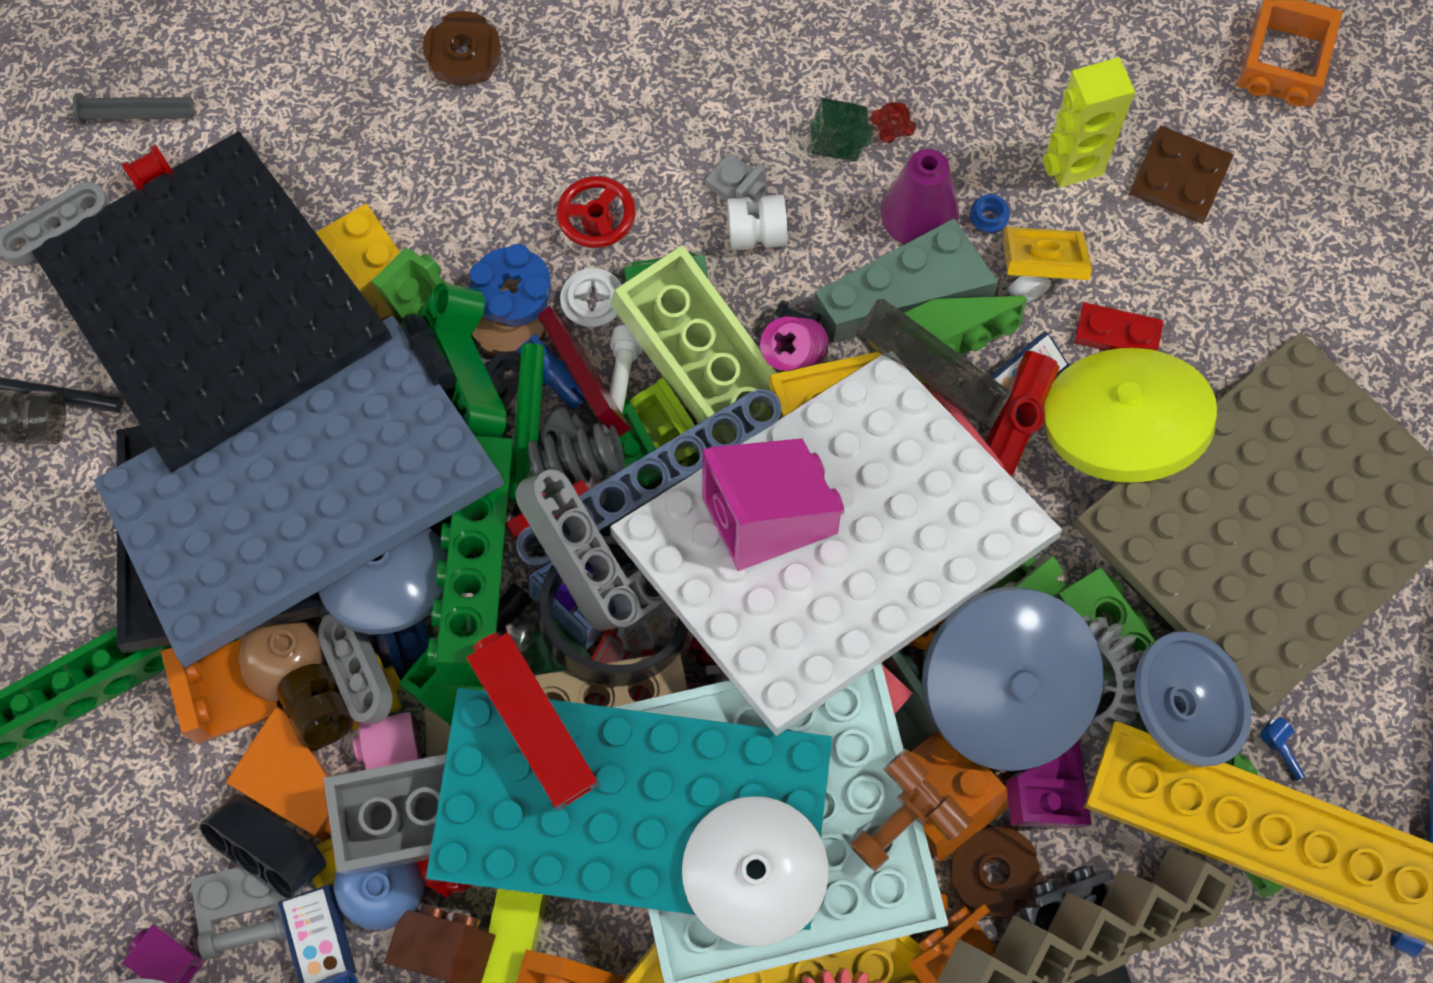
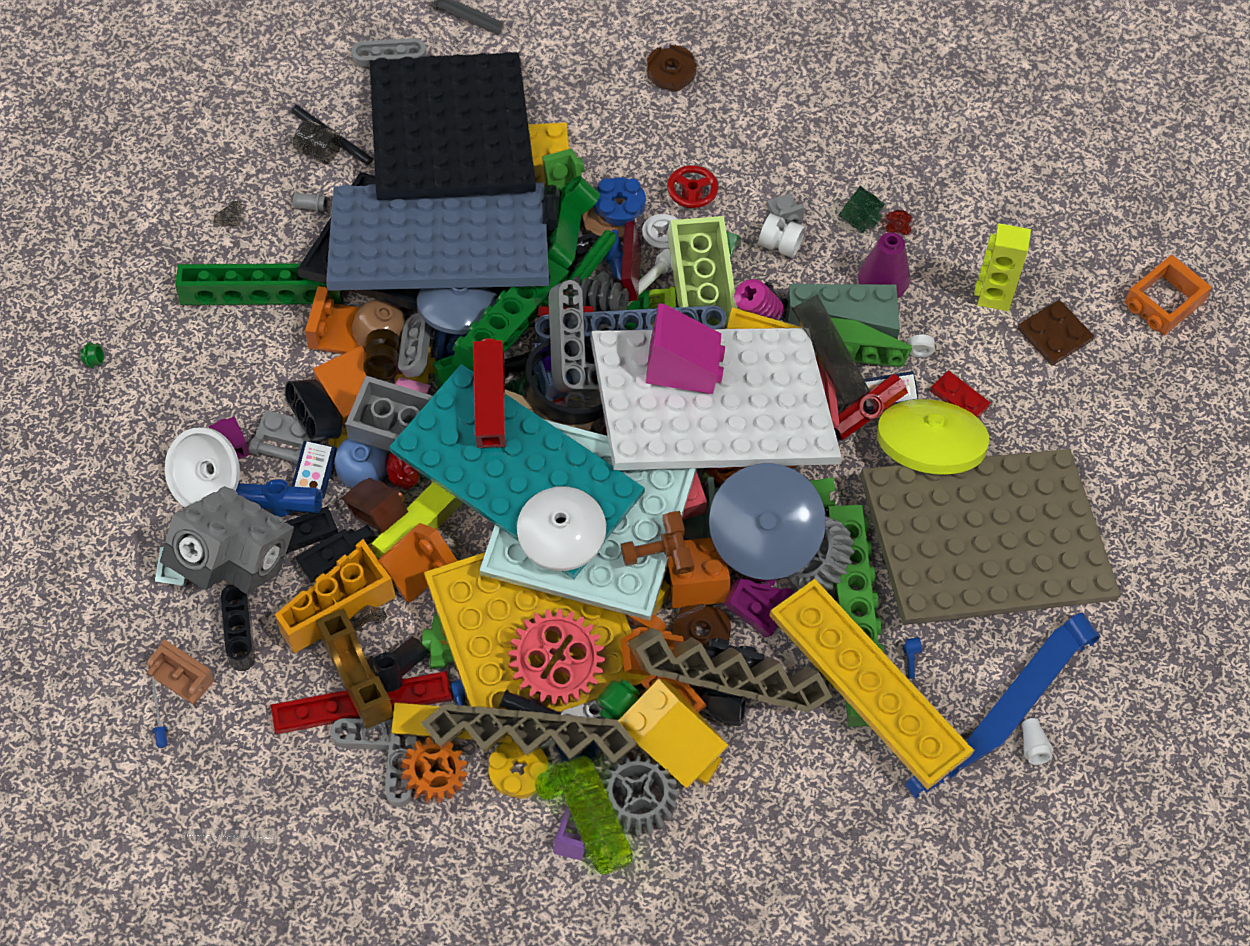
camera: 25 degrees right, 10 degrees down
(73, 512) = (310, 201): none -> light grey pin
(147, 167) = (456, 47): red bush -> none
(989, 203) = (927, 292): blue plate -> none
(1046, 253) = (941, 331): yellow tile -> none
(1193, 699) = (875, 581): sand blue dish -> none

